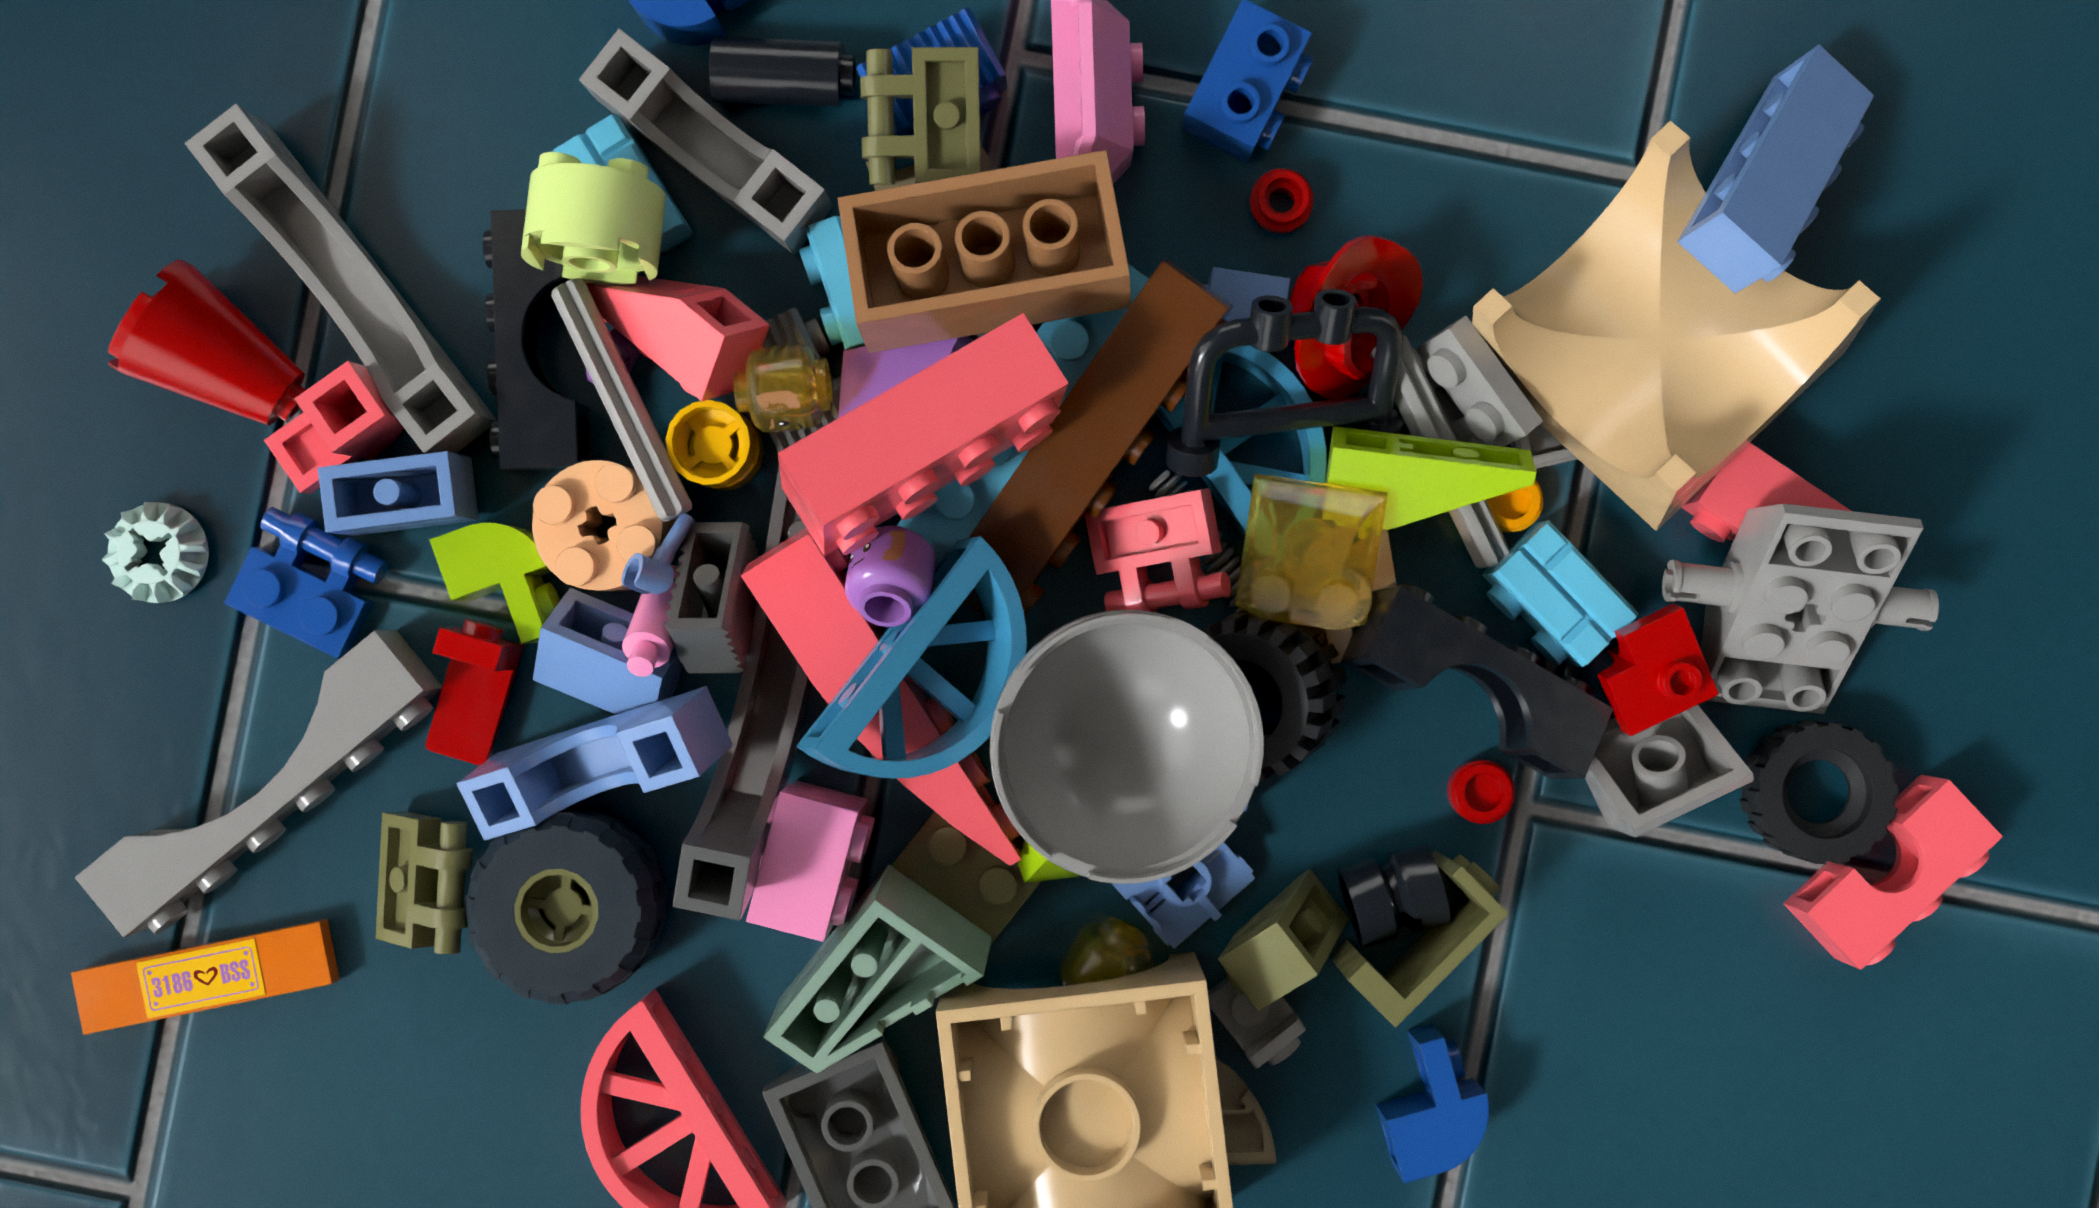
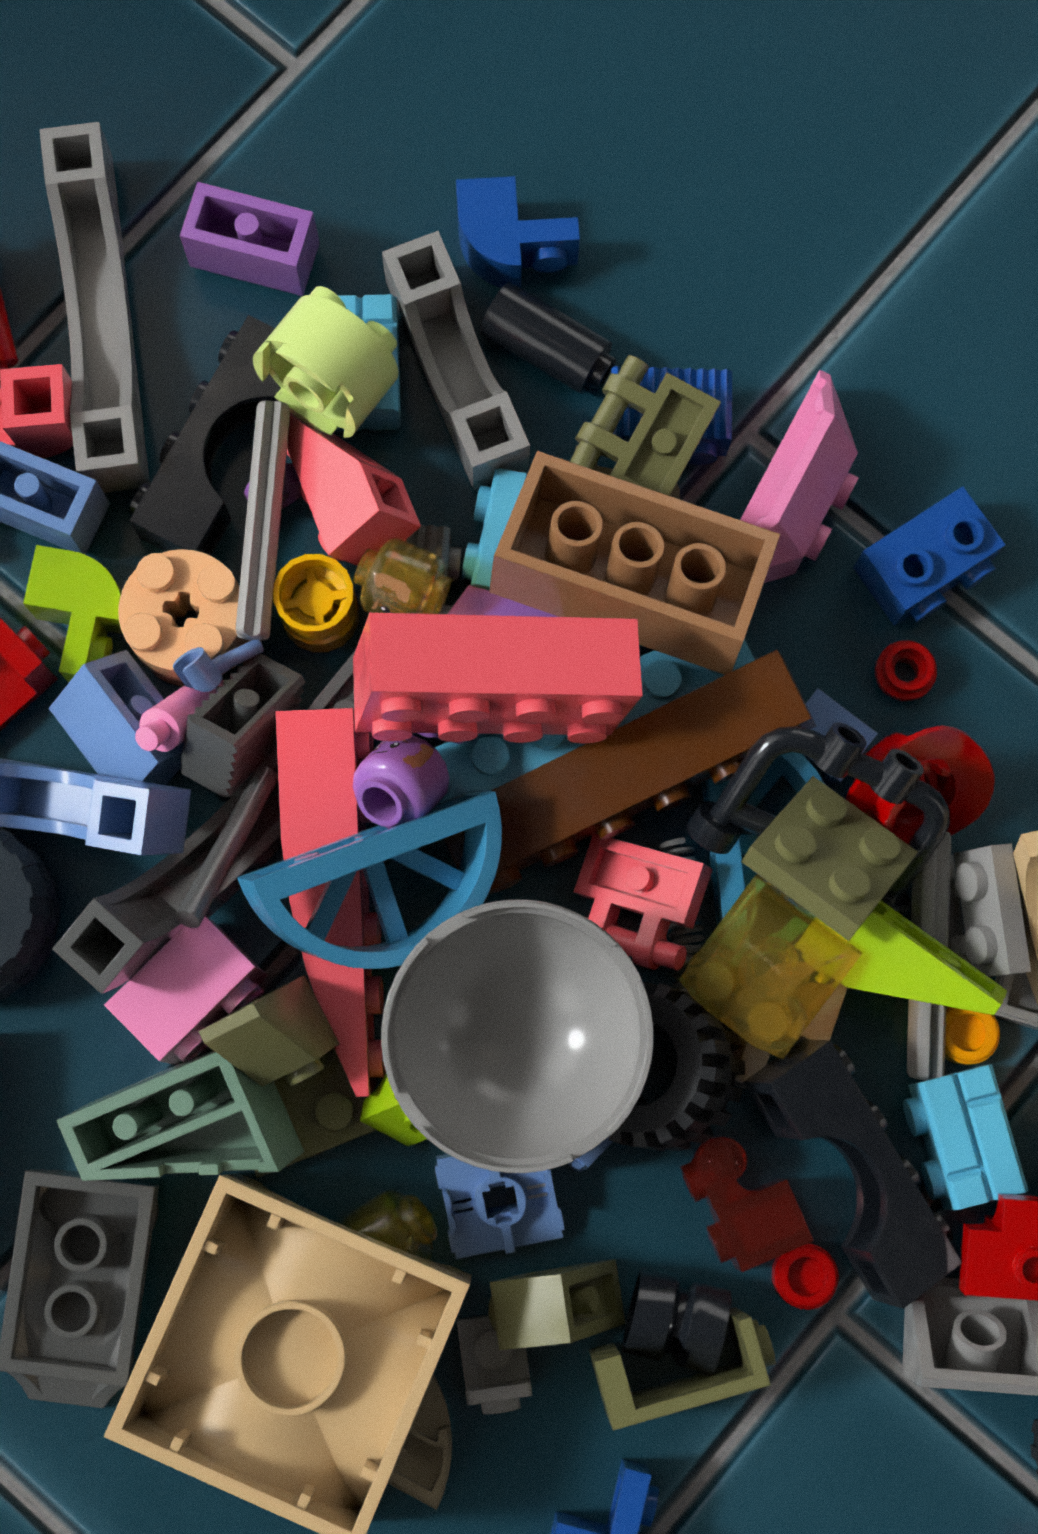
camera: 30 degrees right, 10 degrees down
(446, 134) = (250, 238): none -> medium lavender brick
(769, 719) = (227, 847): none -> dark grey bar
(909, 858) = (275, 1035): none -> olive slope
(1312, 424) = (829, 857): none -> olive plate
(1412, 775) = (748, 1223): none -> clear red brick

